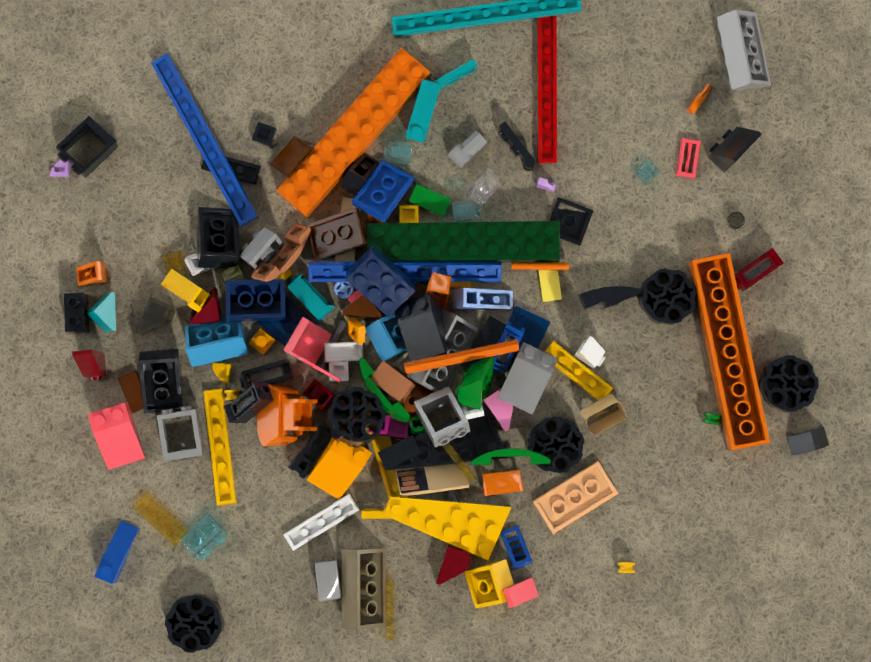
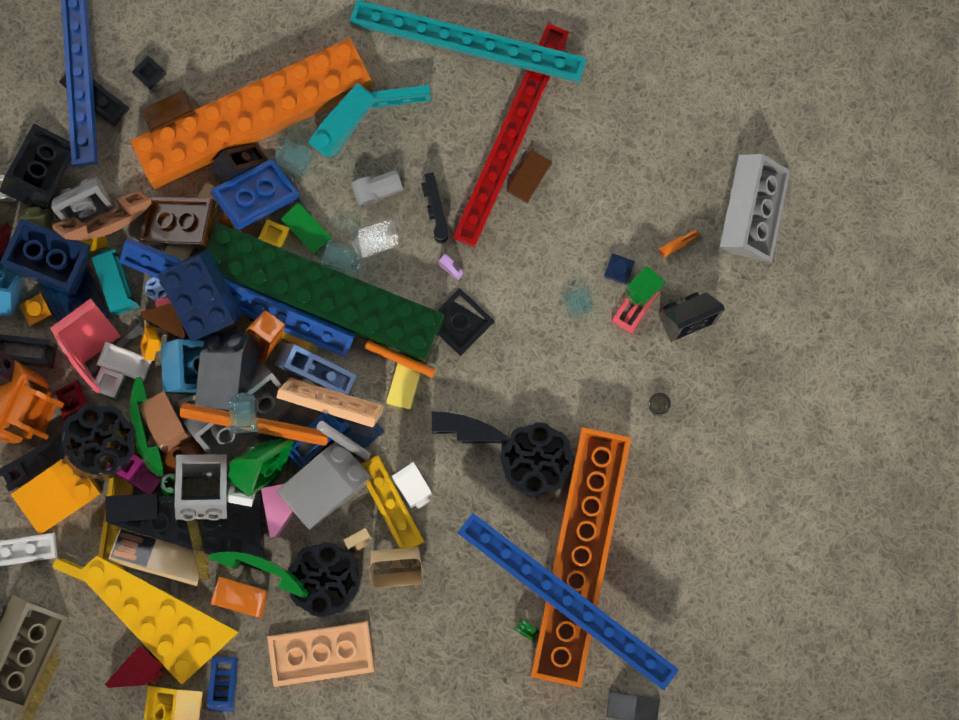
camera: 25 degrees right, 5 degrees down
(453, 352) = (243, 413): none -> clear light blue brick
(507, 317) = (330, 402): none -> light nougat tile
(528, 341) = (343, 440): none -> light grey bar
(567, 407) = (358, 540): none -> tan plate
(572, 95) = (529, 176): none -> reddish brown tile
(665, 135) = (619, 269): none -> dark blue plate
(691, 141) = (644, 287): none -> green brick
(736, 386) = (568, 601): none -> blue plate
(757, 269) = (658, 473): dark red window -> none
(790, 366) = (651, 605): black connector -> none

